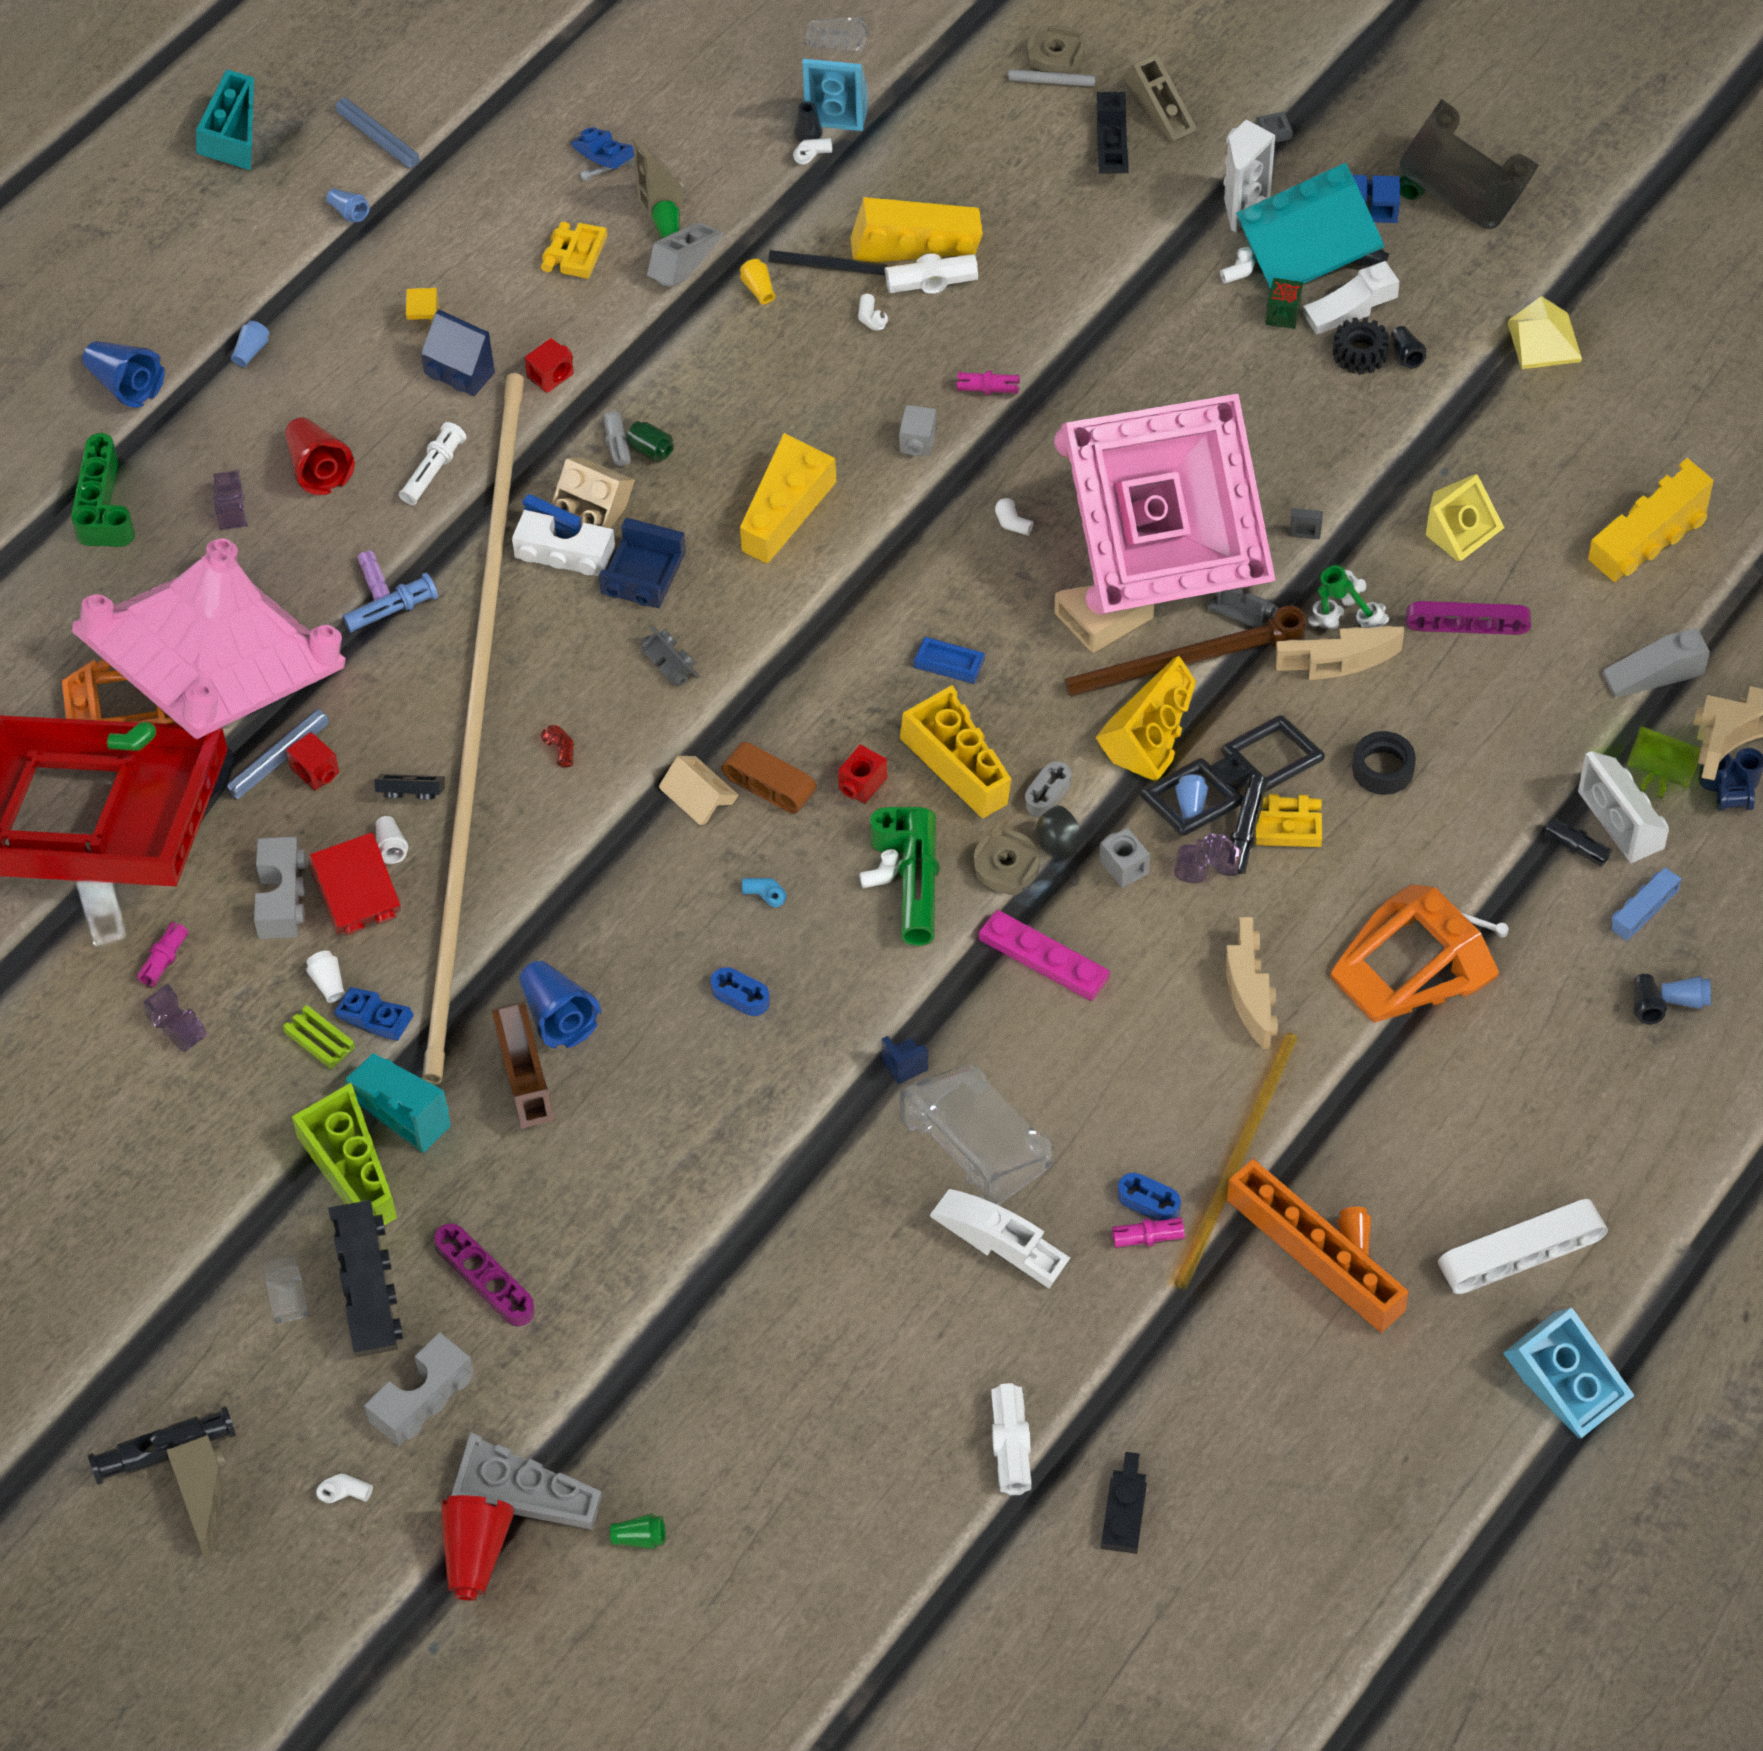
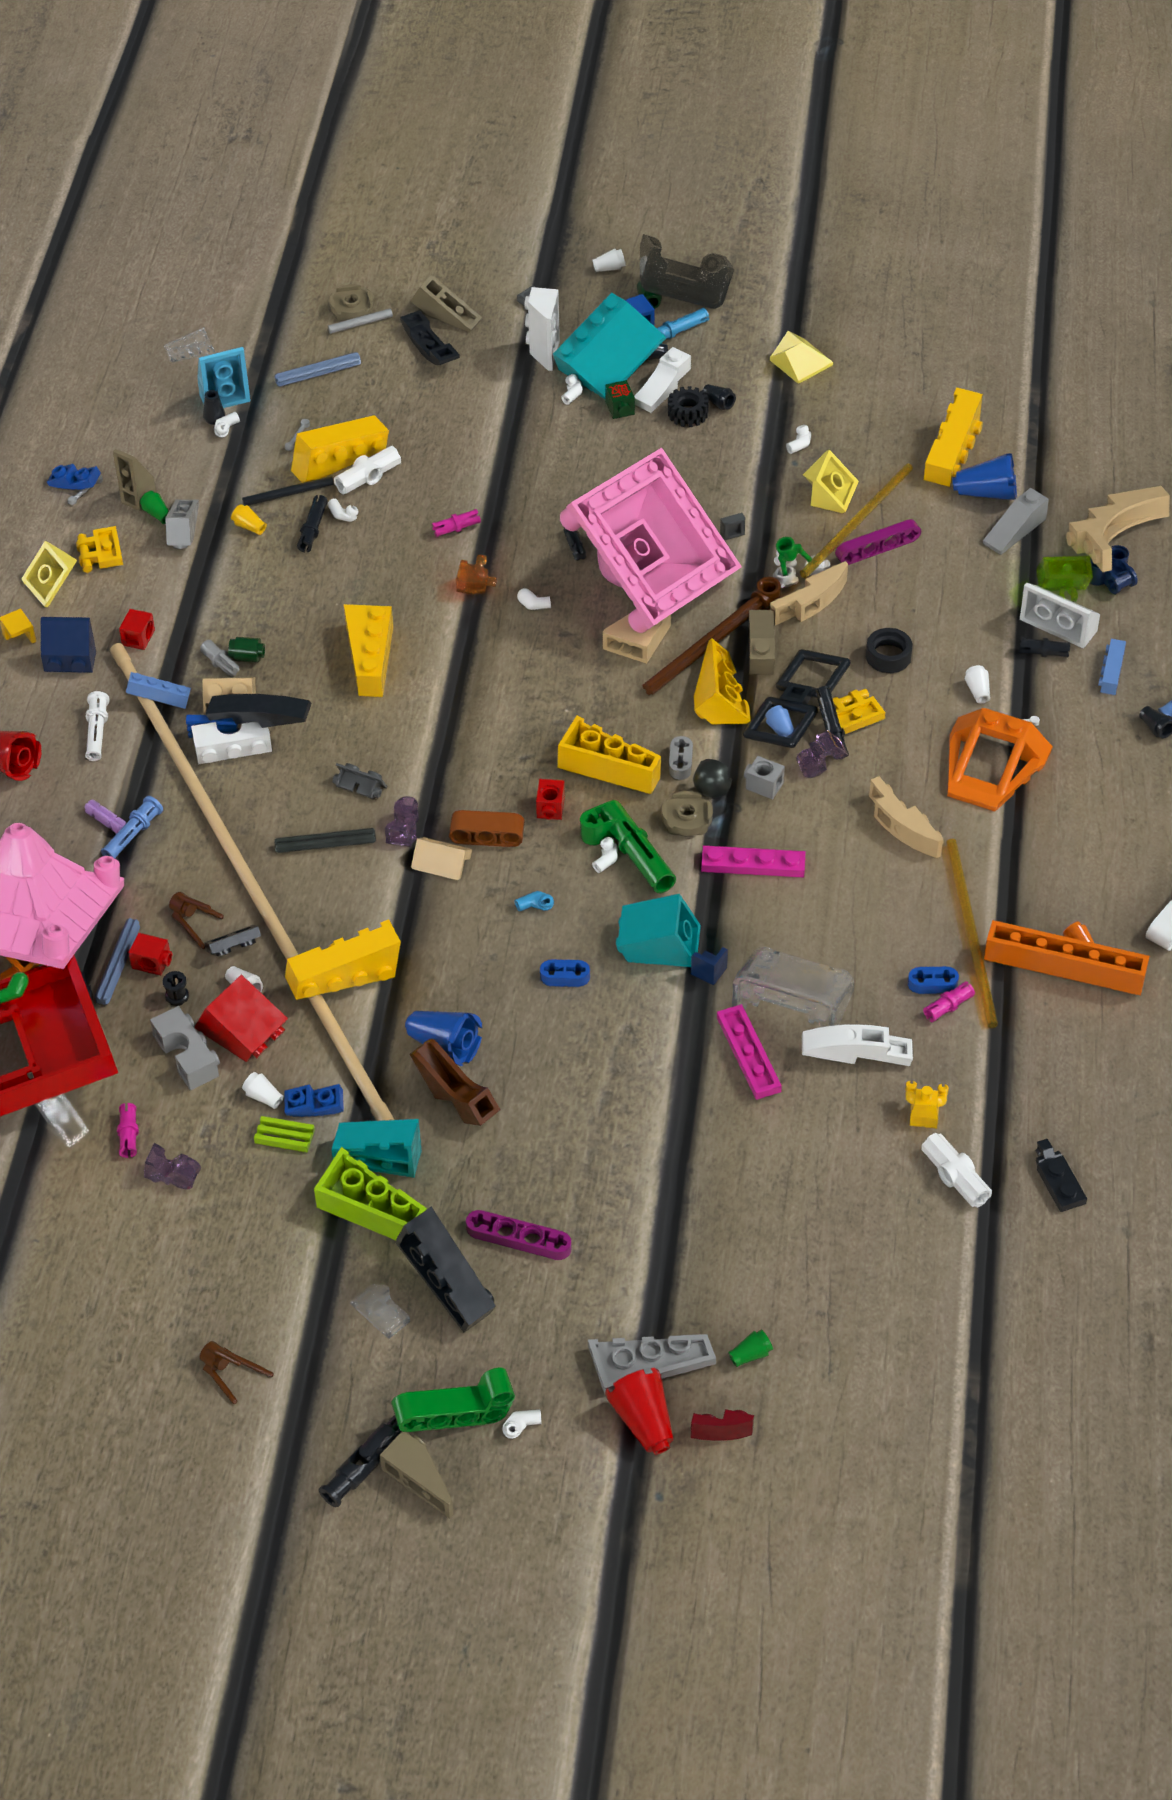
camera: 30 degrees left, 5 degrees down
(85, 1258) = (218, 1358): none -> reddish brown plant
(276, 1435) = (456, 1406): none -> green beam
(314, 818) = (170, 985): none -> black bush
(387, 723) = (186, 906): none -> reddish brown plant
(401, 1412) = (527, 1351): light grey arch -> none
(498, 256) = (48, 572): none -> light yellow slope
(499, 869) = (345, 963): none -> yellow wedge
(521, 450) = (158, 690): none -> medium blue piece
(553, 1608) = (733, 1426): none -> dark red slope
(556, 735) = (322, 866): clear red arm -> none
(587, 711) = (325, 840): none -> pearl dark grey axle
(605, 522) = (264, 708): none -> black slope
(643, 563) = (303, 738): dark blue panel -> none
(692, 720) = (403, 829): none -> clear purple leg
(818, 321) = (309, 529): none -> black pin
(872, 993) = (658, 932): none -> teal slope
(876, 1183) = (749, 1052): none -> dark pink plate
(904, 185) = (305, 423): none -> light grey hinge
(917, 430) = (430, 570): light grey brick -> none
(949, 660) = (554, 705): blue tile -> none
(958, 462) = (474, 578): none -> clear orange piece
(962, 121) = (317, 369): none -> sand blue axle
(1027, 1346) = (925, 1104): none -> yellow piece
(1236, 685) = (761, 642): none -> dark tan slope
(1243, 607) = (736, 593): dark grey hinge -> none
(1398, 116) = (609, 261): none -> white cone
(1437, 233) = (684, 323): none -> dark azure pin
(1457, 579) = (855, 521): none -> clear yellow piece
(1462, 852) = (978, 682): none -> white cone
(1471, 446) = (802, 439): none -> white arm
(1661, 594) = (988, 479): none -> blue cone

